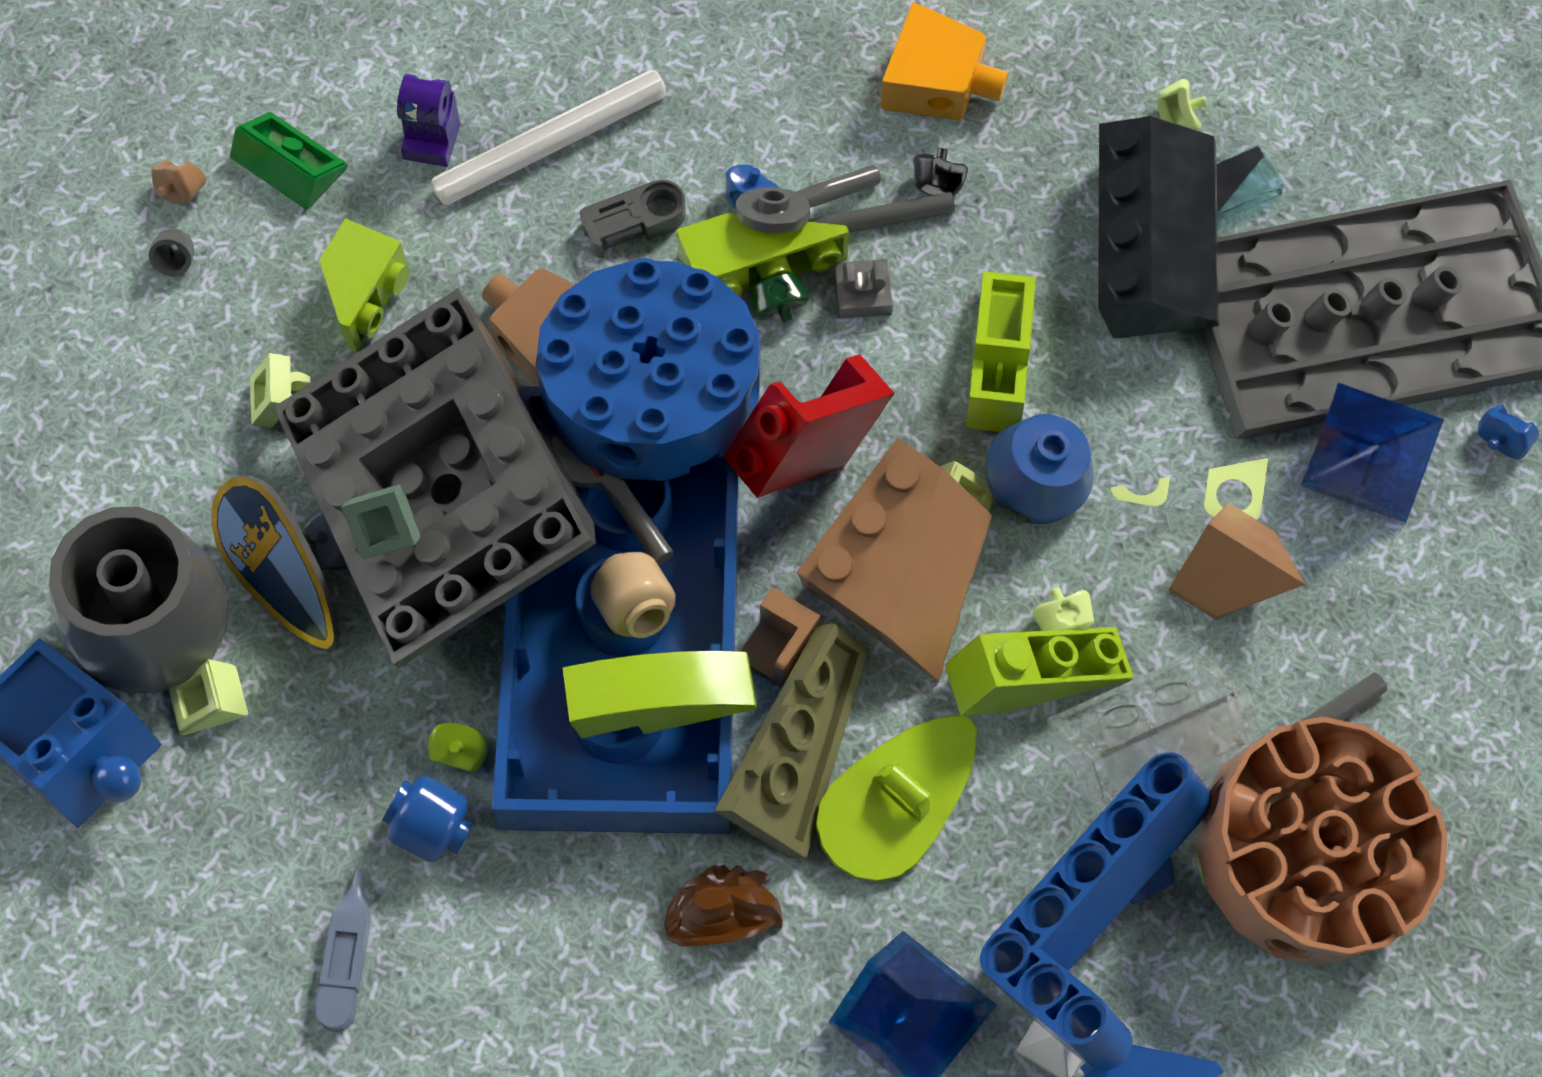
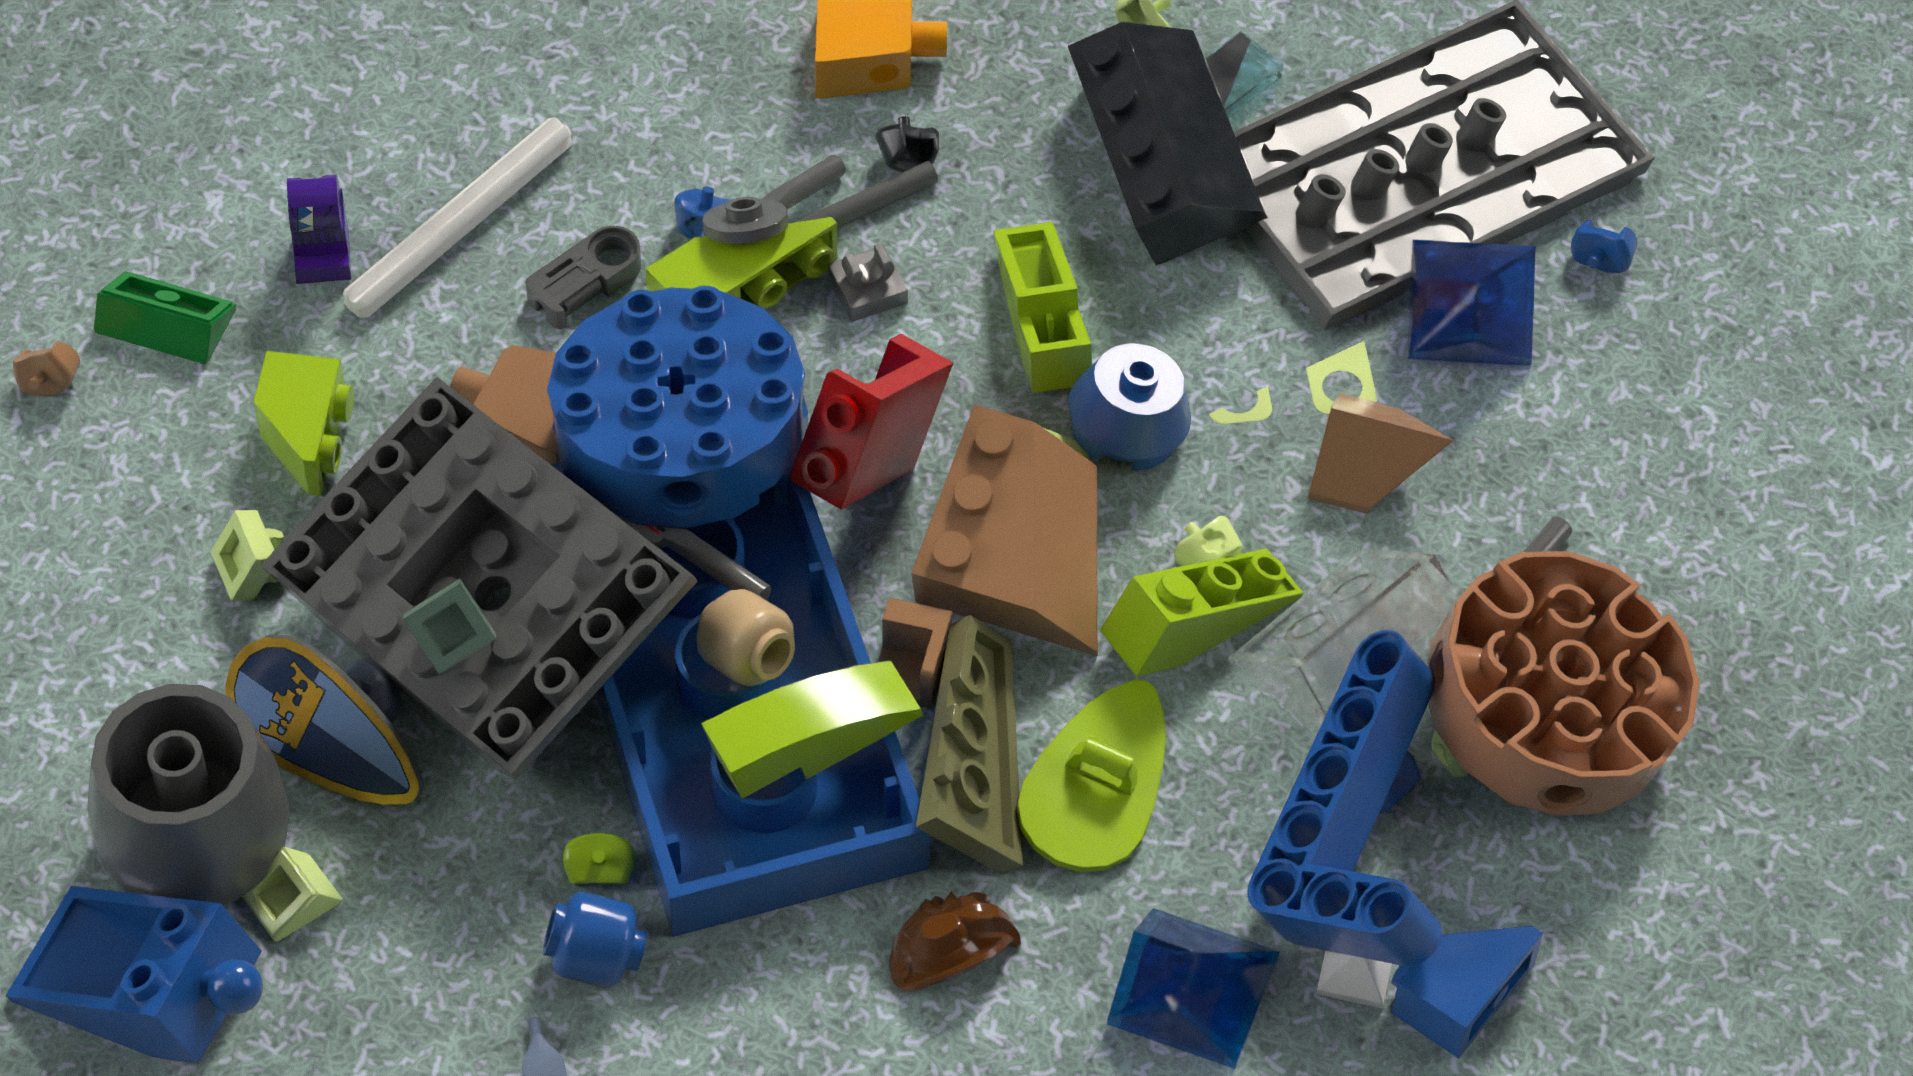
camera: 20 degrees left, 10 degrees down
(162, 252) = (57, 450): dark grey hinge -> none
(778, 295) = (787, 307): dark green piece -> none

